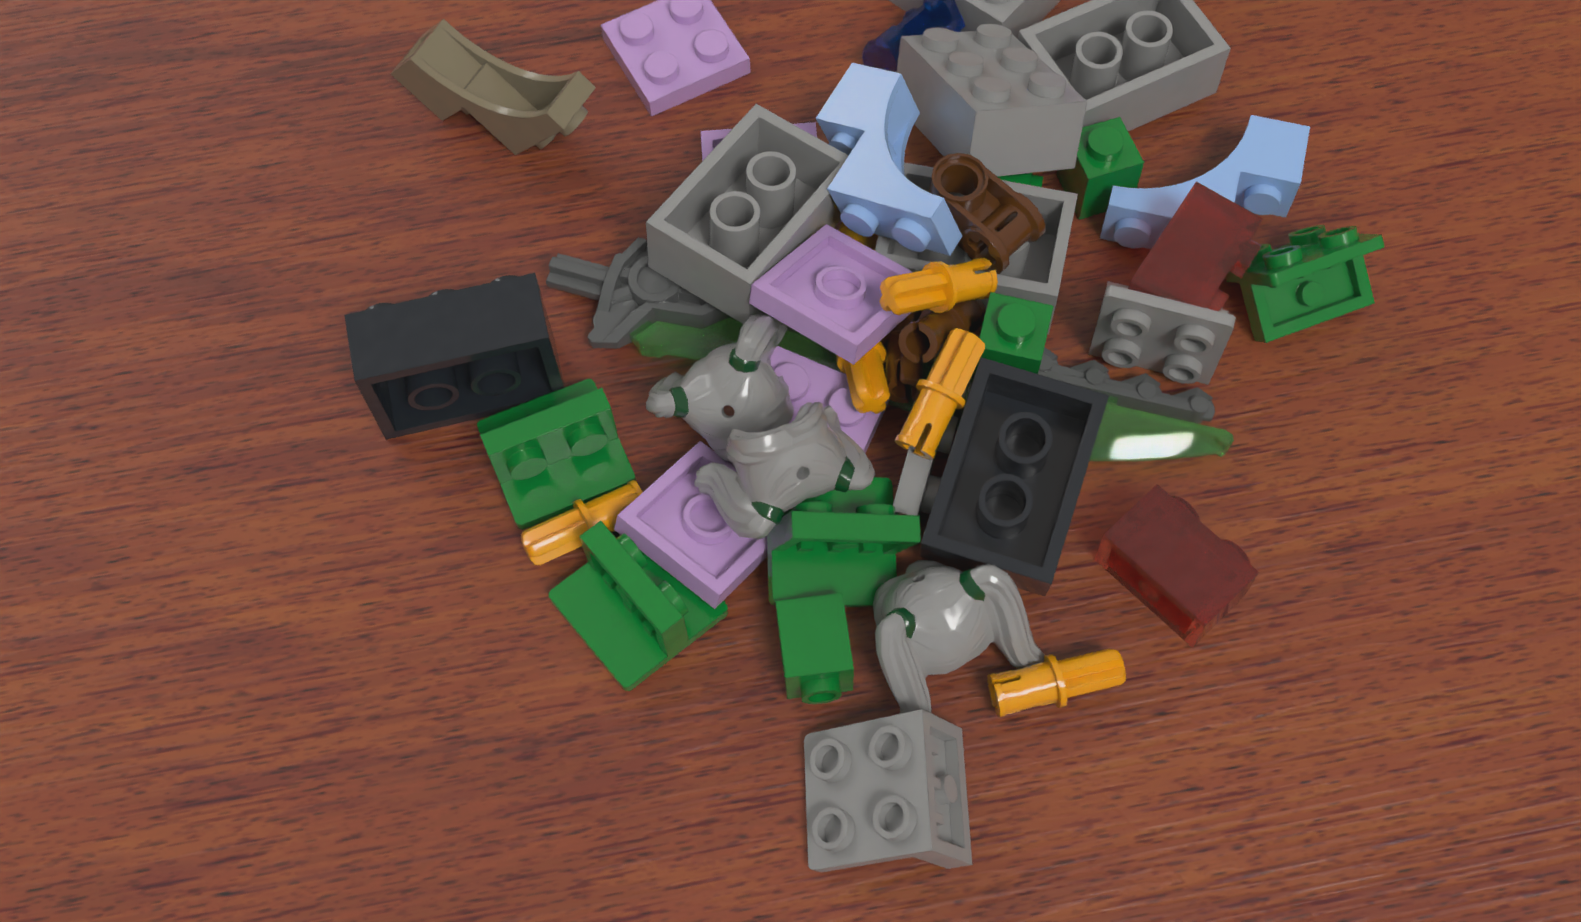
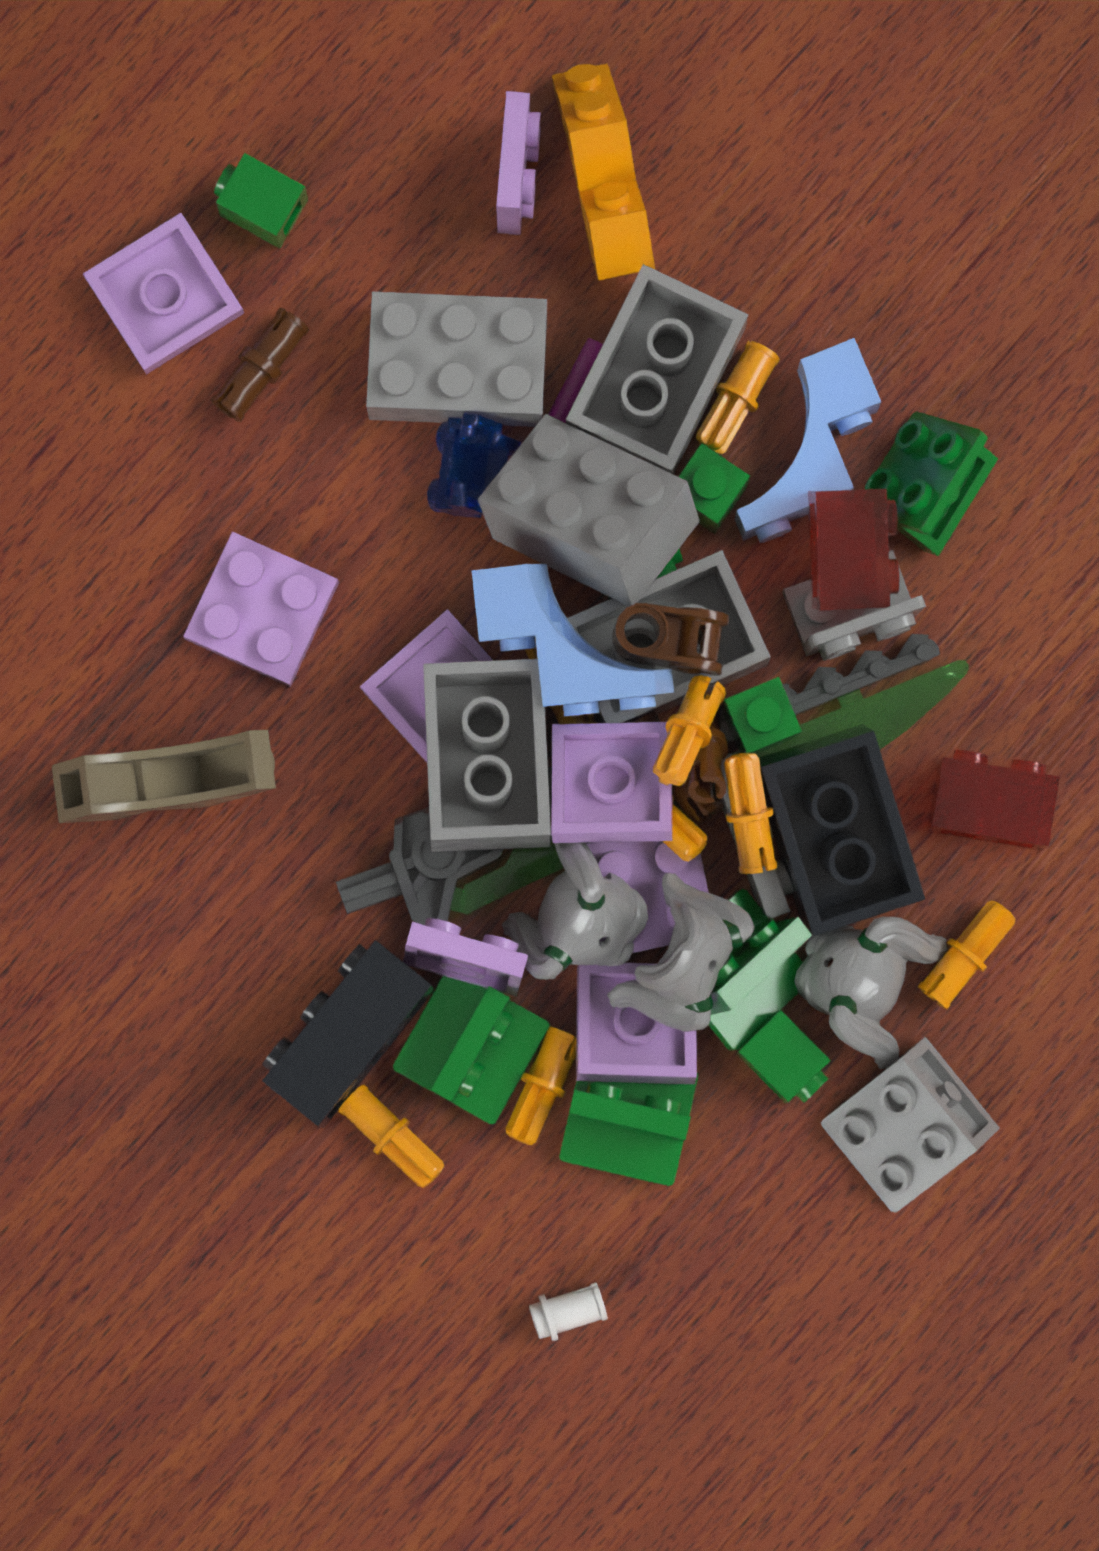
camera: 40 degrees left, 20 degrees up
(427, 474) = (392, 1136): none -> light orange axle
(441, 729) = (567, 1311): none -> white pin
(601, 349) = (443, 951): none -> lavender plate
(1179, 125) = (737, 397): none -> light orange axle

